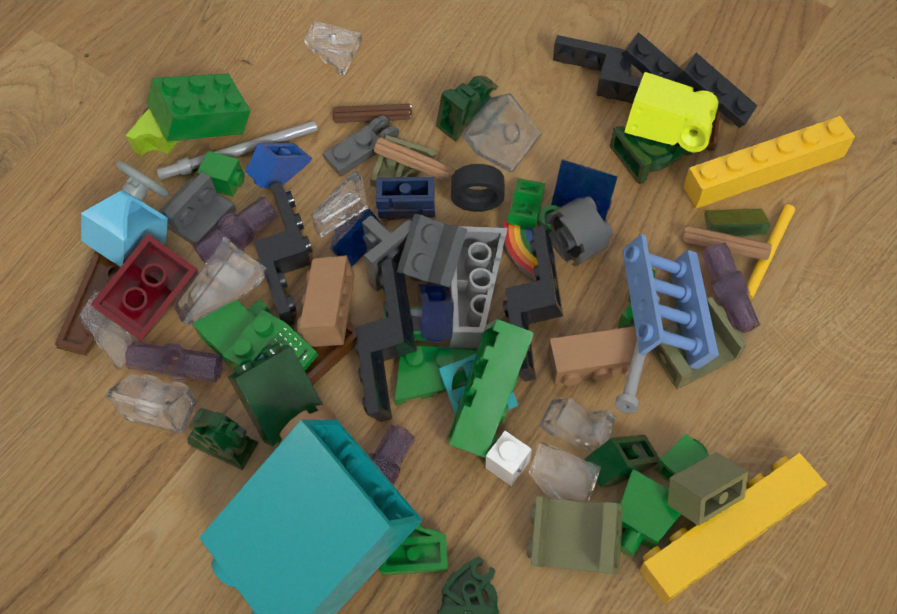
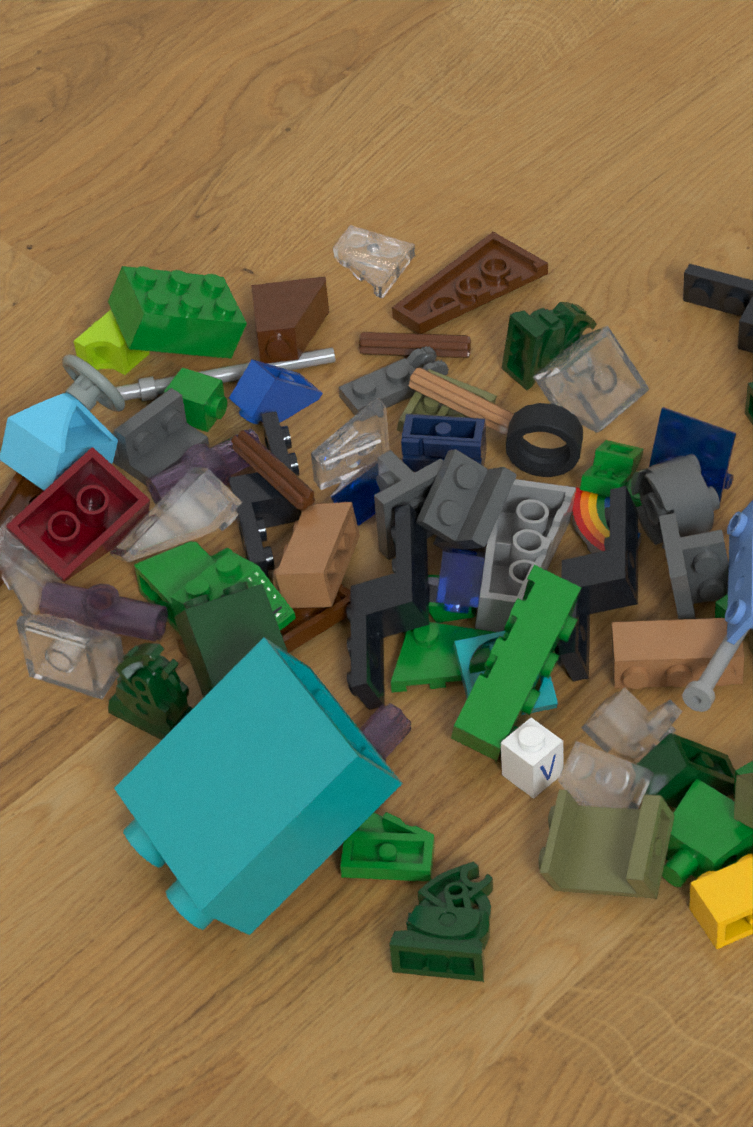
camera: 10 degrees right, 15 degrees down
(279, 100) = (288, 316): none -> reddish brown slope
(285, 234) = (273, 470): none -> reddish brown axle
(404, 59) = (470, 281): none -> reddish brown wing
(601, 288) = (695, 566): none -> dark grey bracket

